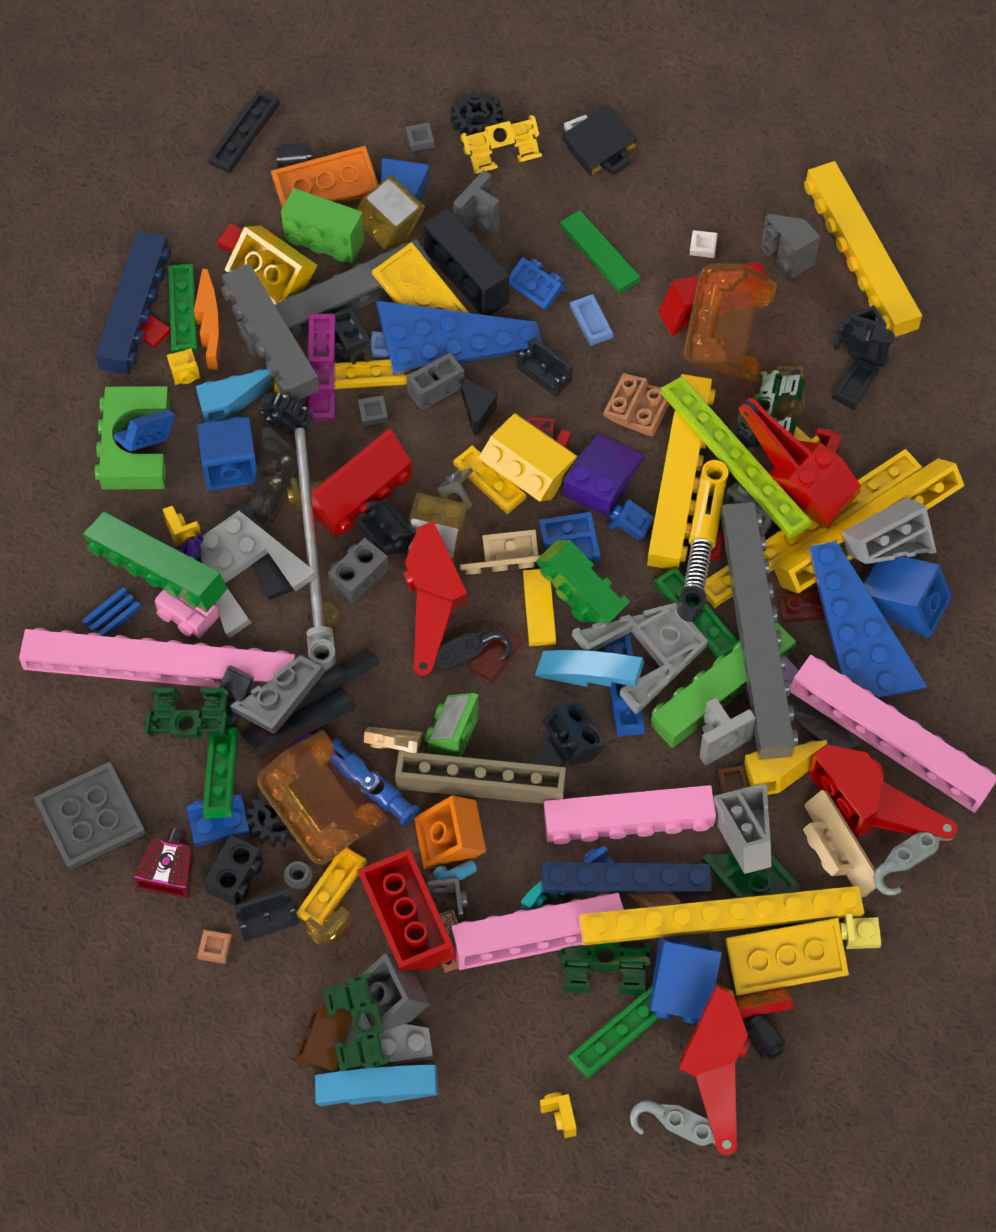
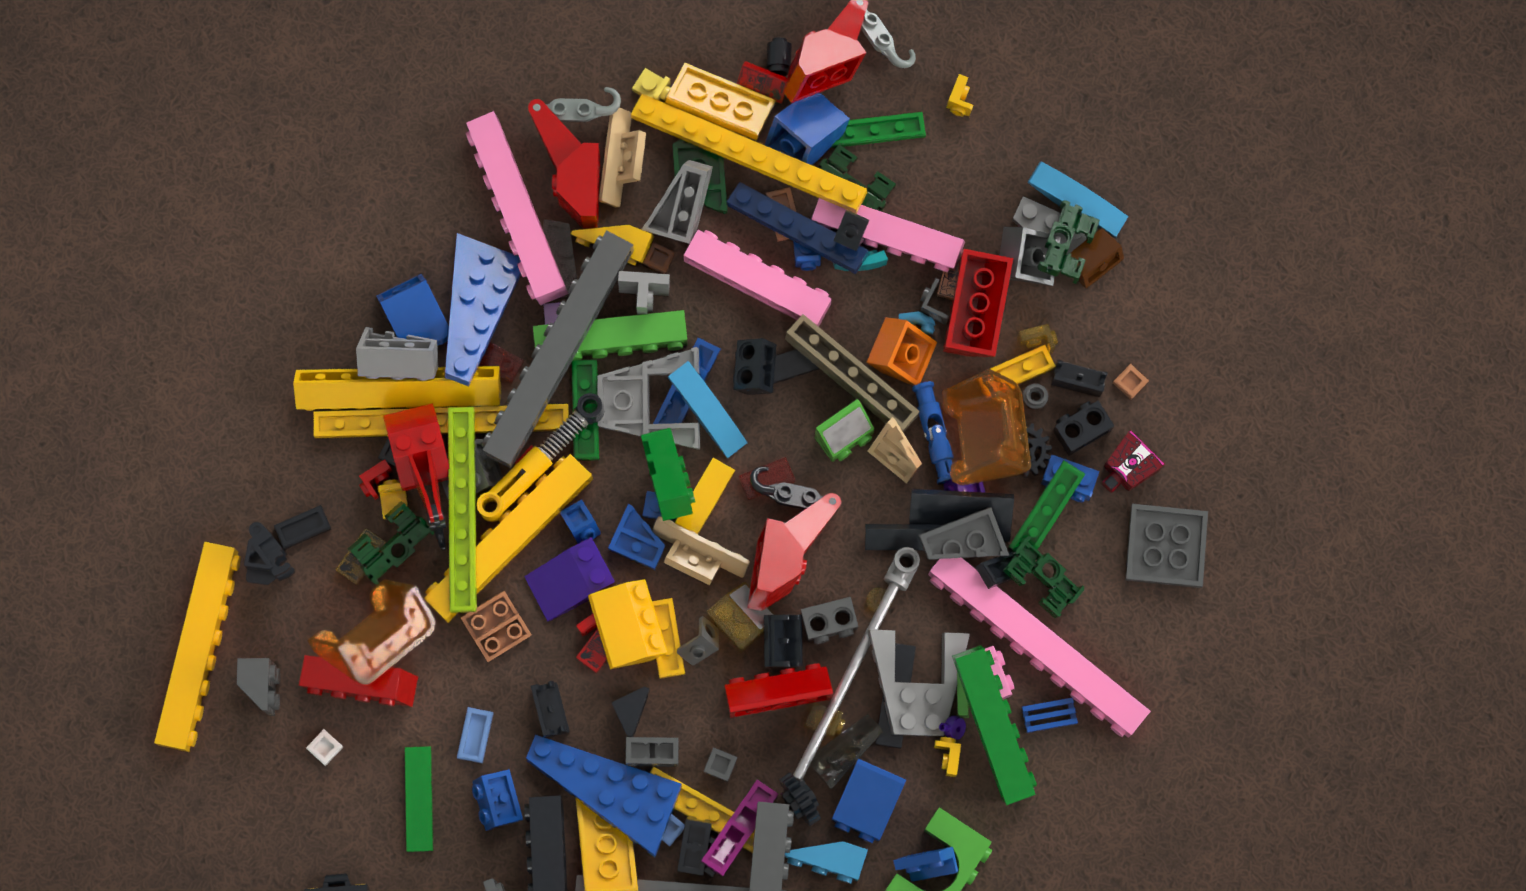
camera: 150 degrees left, 15 degrees up
(569, 886) = (851, 230): none -> black bracket

